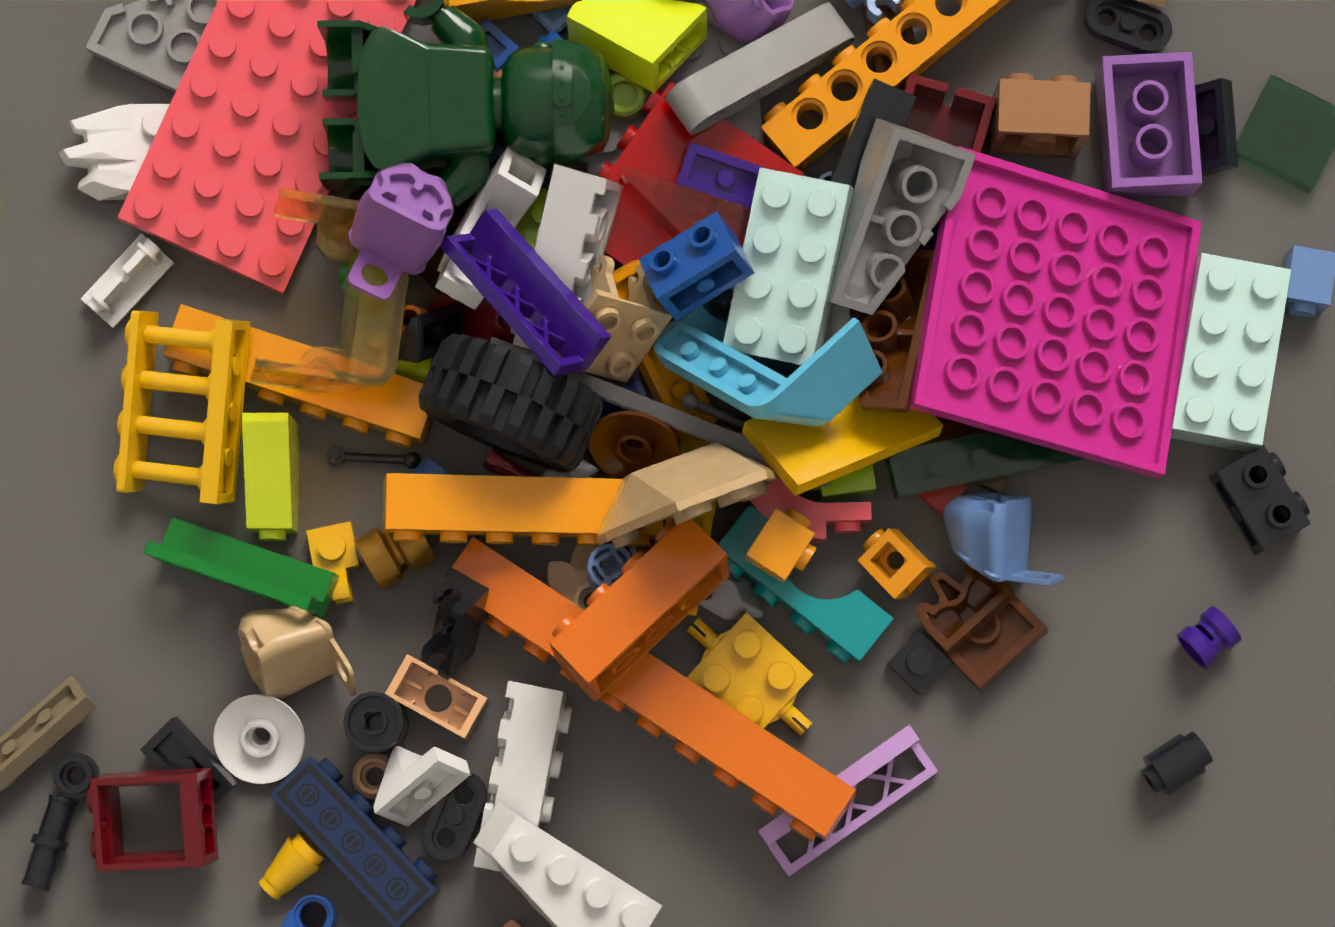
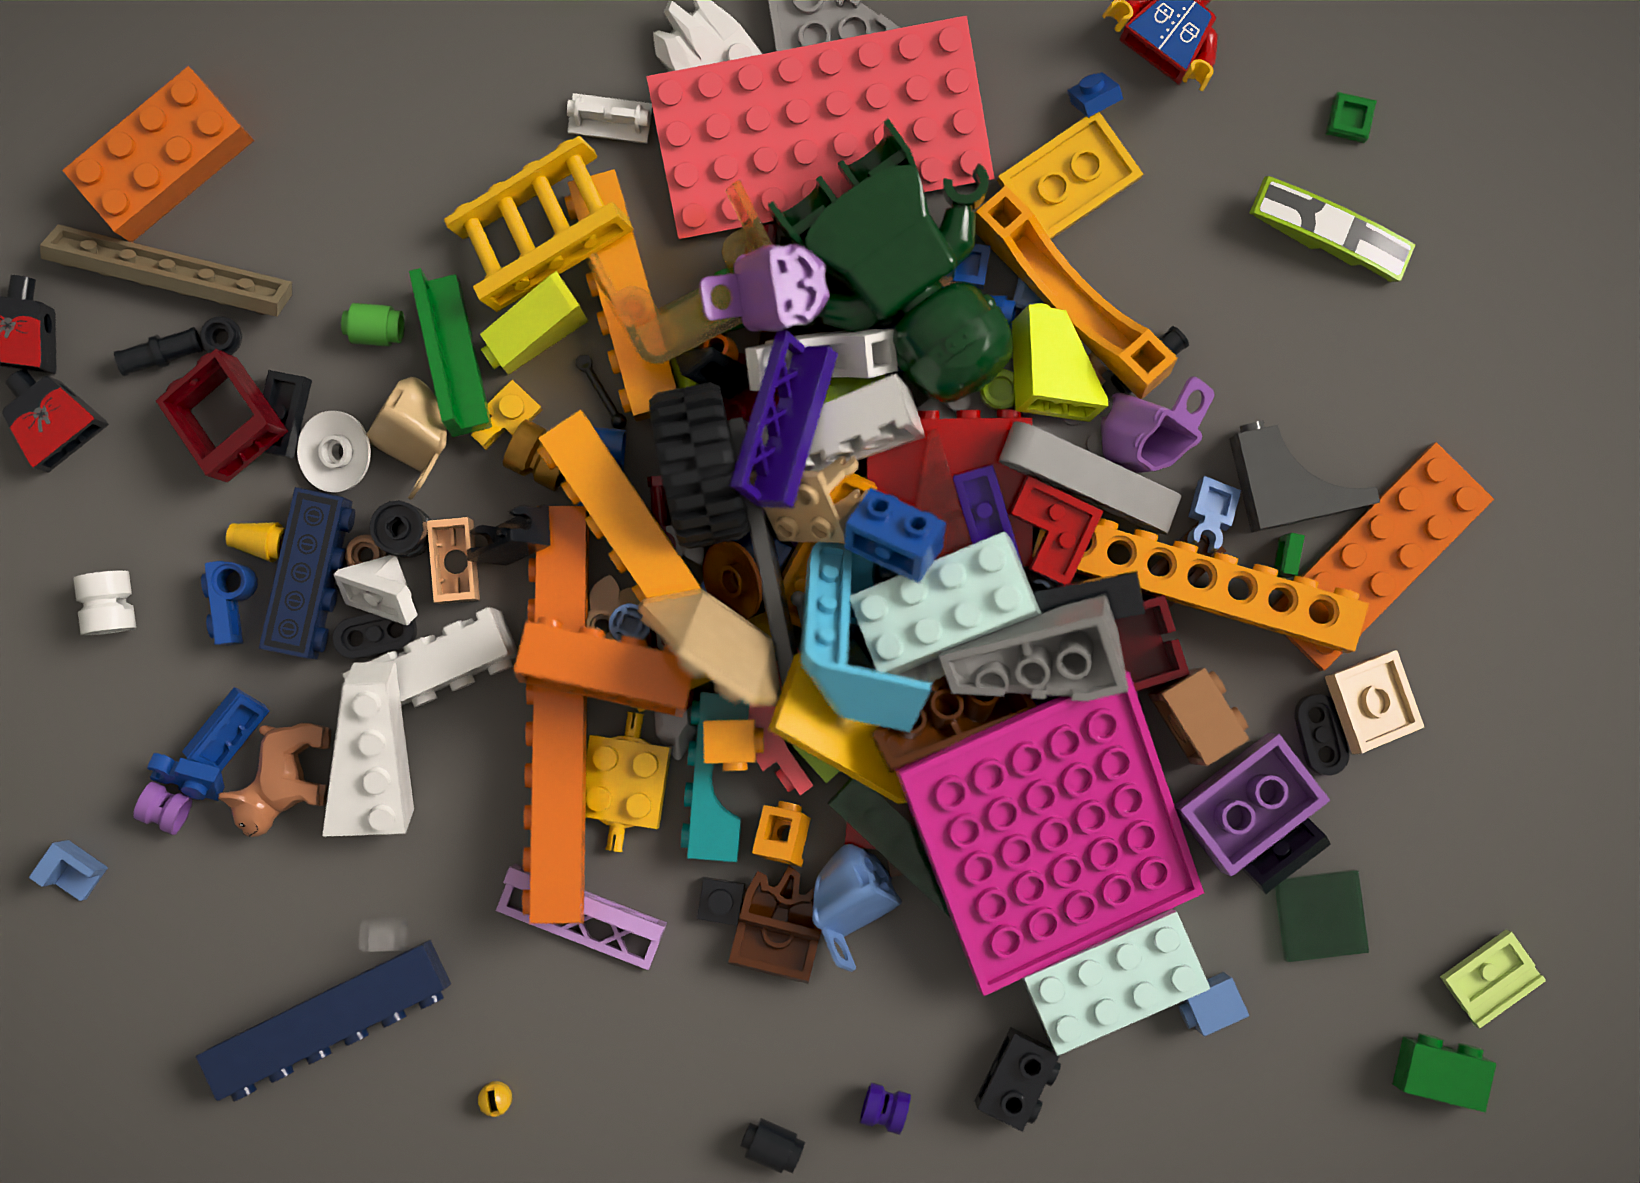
camera: 50 degrees right, 5 degrees up
(165, 624) = (373, 324): none -> bright green brick
(788, 115) = (1066, 525): none -> red plate

